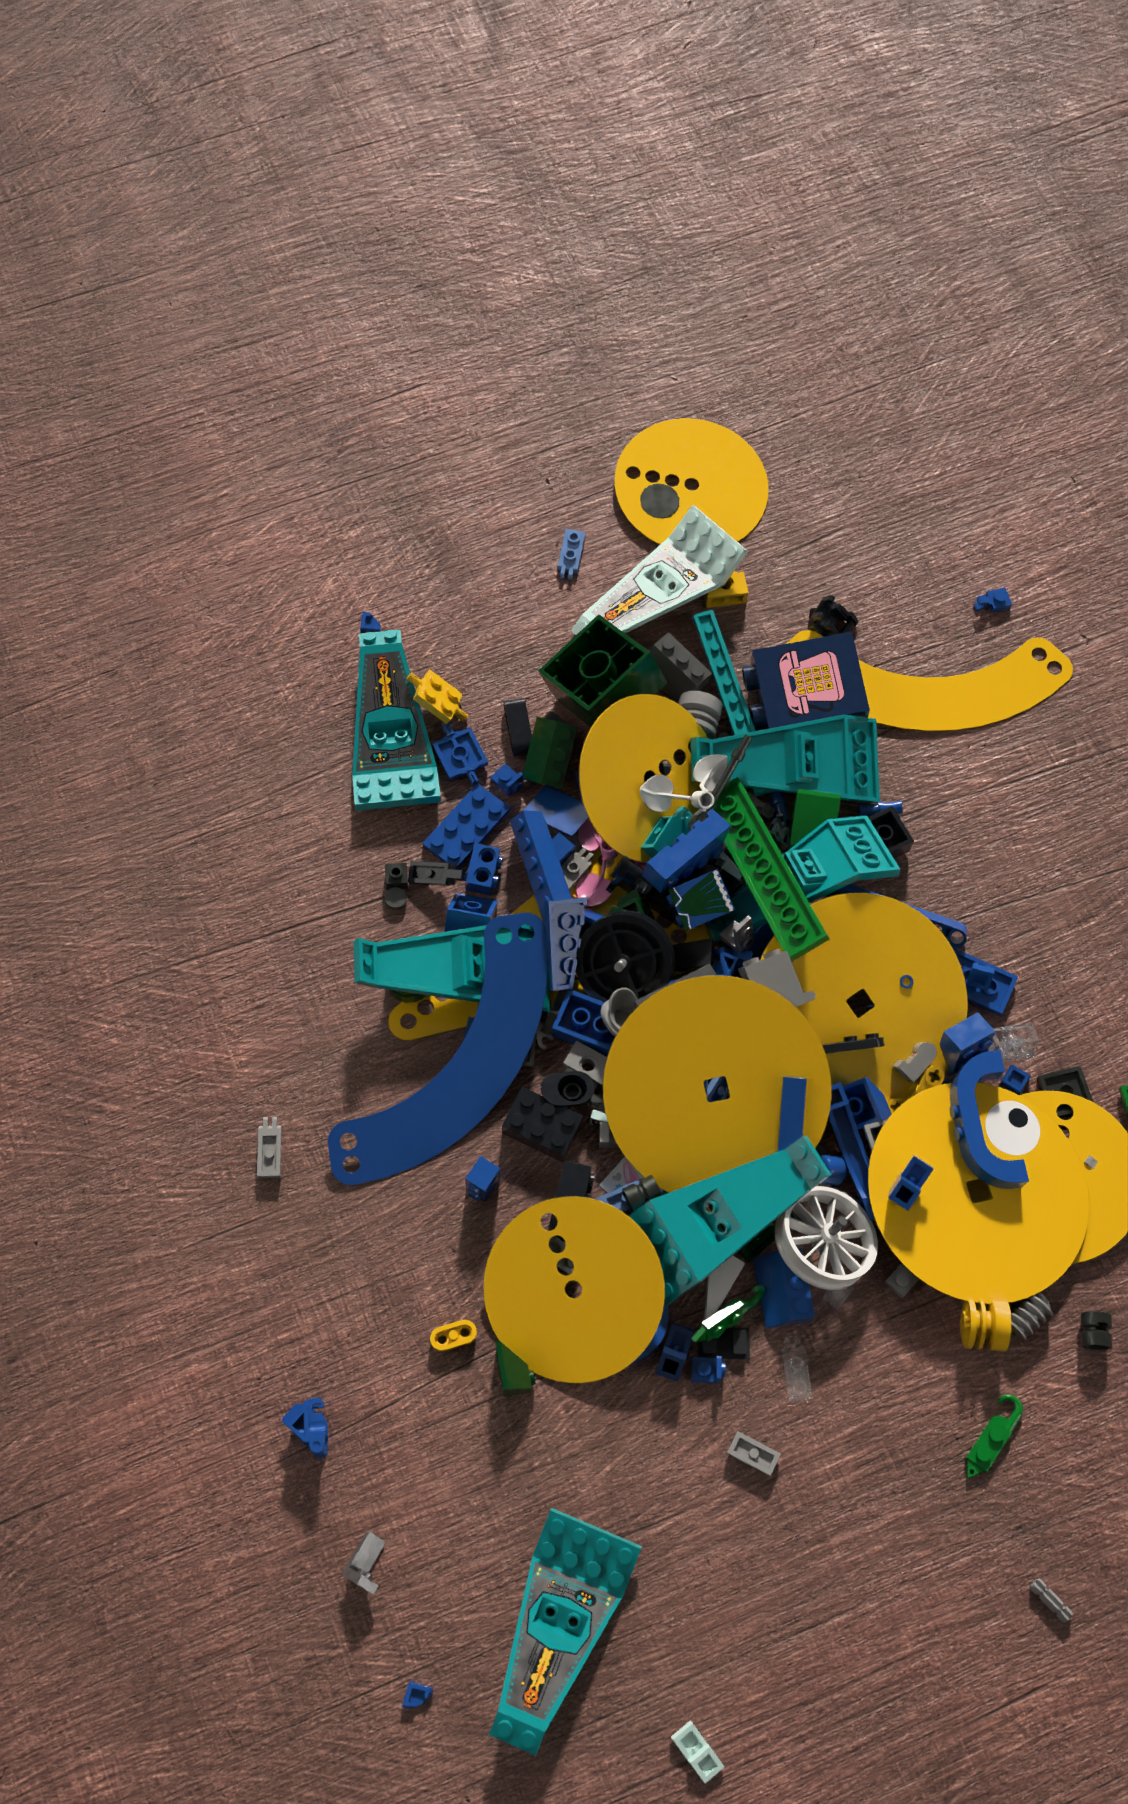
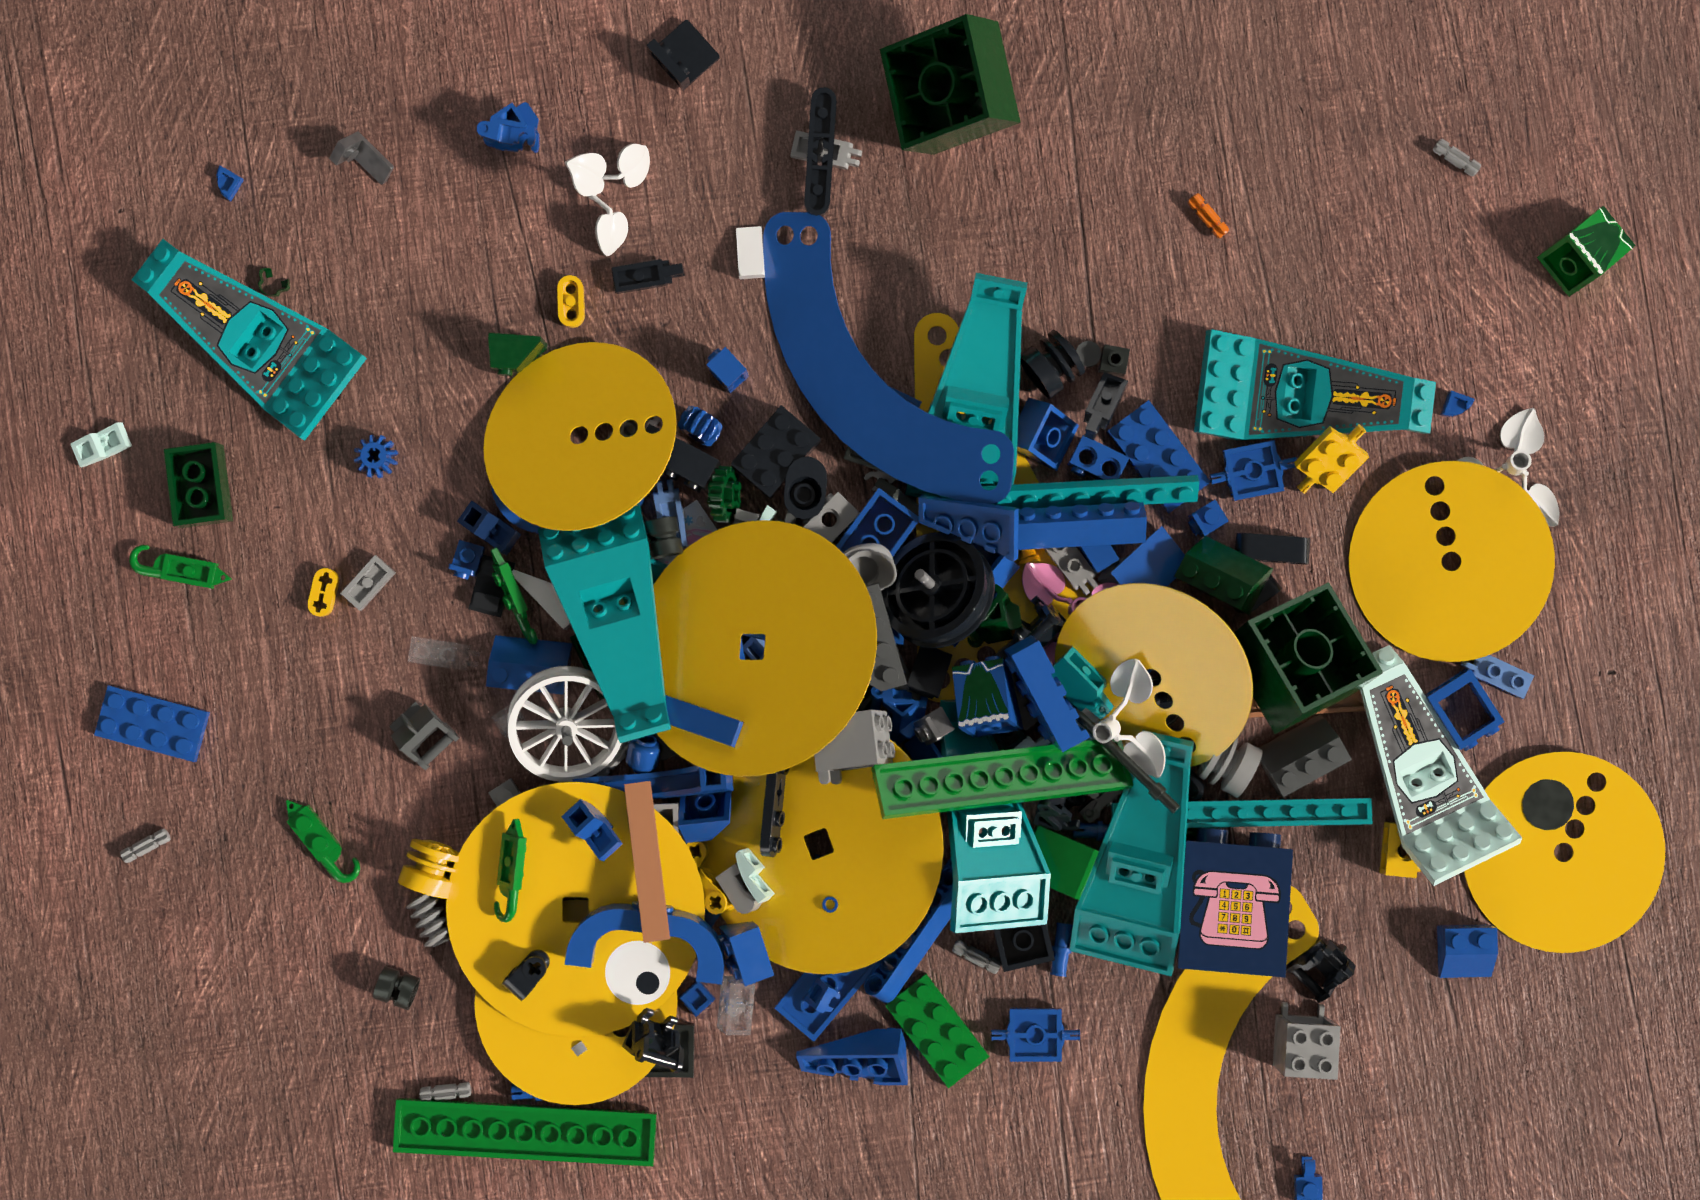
camera: 105 degrees right, 20 degrees up
(172, 663) = (1456, 157): none -> light grey axle
(195, 1046) = (950, 85): none -> dark green brick
(207, 1291) = (683, 54): none -> black bracket
(229, 557) = (1586, 251): none -> green slope
(249, 1151) = (820, 127): none -> black piece
(259, 832) = (1208, 215): none -> orange axle
(344, 1333) = (587, 177): none -> white plant
(373, 1190) = (750, 252): none -> white slope
(382, 575) = (1526, 437): none -> white plant
(411, 917) = (1056, 360): none -> black wheel
(415, 1276) = (645, 275): none -> black hinge
(492, 1631) = (268, 271): none -> dark green piece
(504, 638) = (1460, 612): none -> yellow piece
(508, 854) = (1095, 492): none -> teal plate
(536, 1189) = (700, 425): none -> blue gear
(591, 1154) = (724, 494): none -> dark green gear
(592, 582) = (1450, 686): none -> blue window
(640, 1485) = (366, 456): none -> blue gear
(710, 1637) = (198, 485): none -> dark green brick
(774, 1500) = (317, 591): none -> yellow beam
(784, 531) = (1466, 950): none -> blue slope
(792, 1637) = (179, 569): none -> green plate
(869, 1372) = (414, 727): none -> dark grey piece
(894, 618) = (1306, 1045): none -> light grey container
(899, 1054) = (749, 869): none -> light aqua slope
(907, 871) = (976, 956): none -> light grey axle
(921, 1133) = (647, 861): none -> nougat tile
(940, 1626) = (152, 723): none -> blue plate
(952, 813) = (1035, 1034): none -> blue plate
(965, 1248) = (511, 869): none -> green plate
(975, 887) = (937, 1030): none -> green plate
(1011, 927) = (870, 1055): none -> blue wedge
(1046, 1215) = (525, 976): none -> black piece
(1066, 1094) = (655, 1041): none -> black piece

